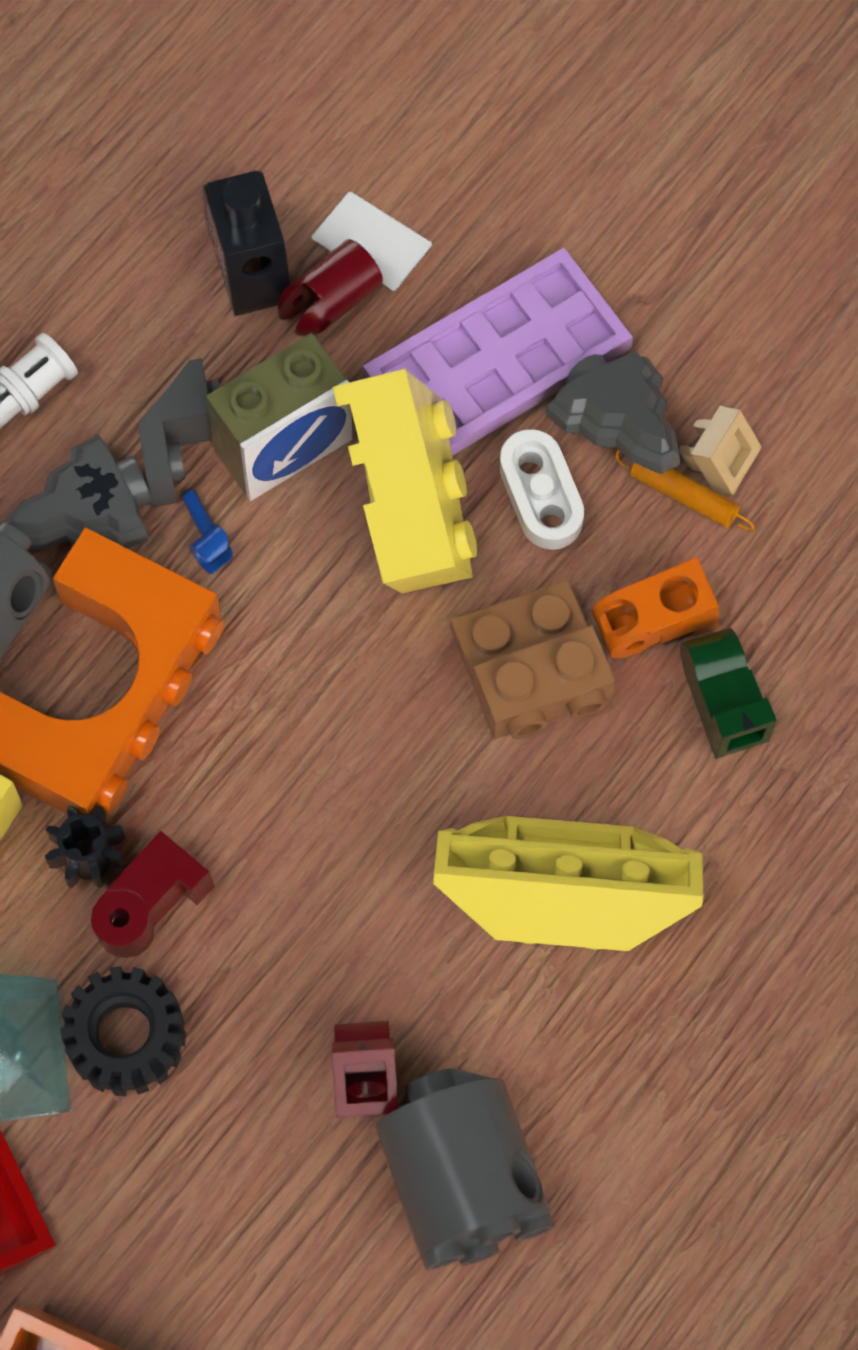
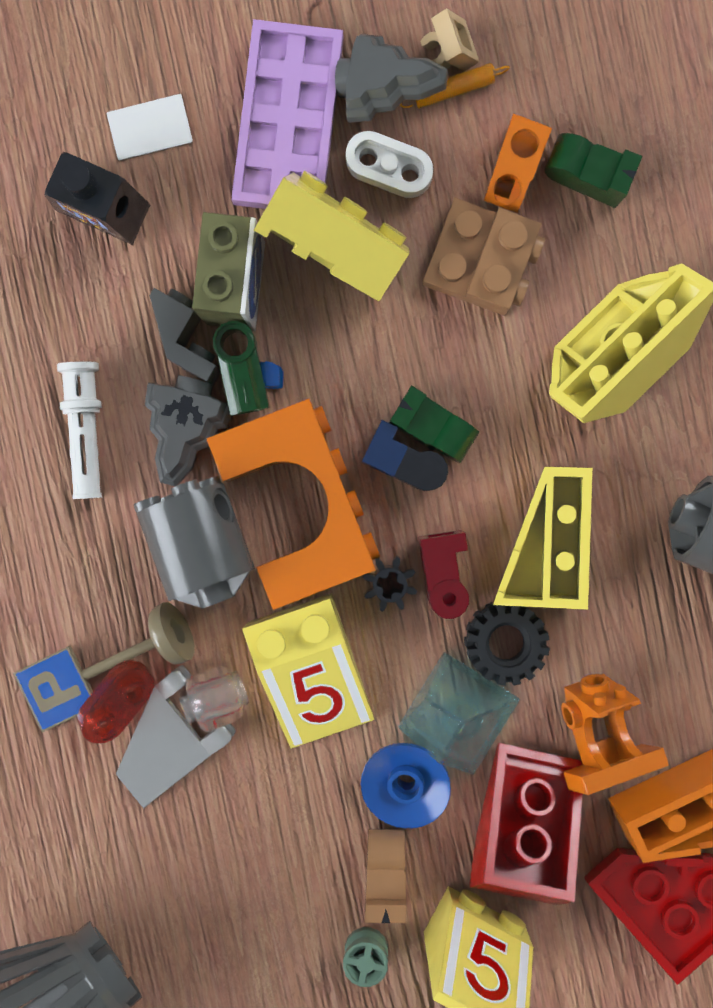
camera: 45 degrees left, 20 degrees up
(139, 1183) = (613, 757): none -> orange tile
(187, 510) = (241, 373): none -> dark green piece
(240, 774) = (418, 469): none -> leg
(280, 978) = (553, 545): none -> light yellow wedge
(302, 749) = (434, 425): none -> dark green leg
(336, 283) = (163, 170): dark red piece -> none
(362, 1066) = (639, 536): dark red leg -> none

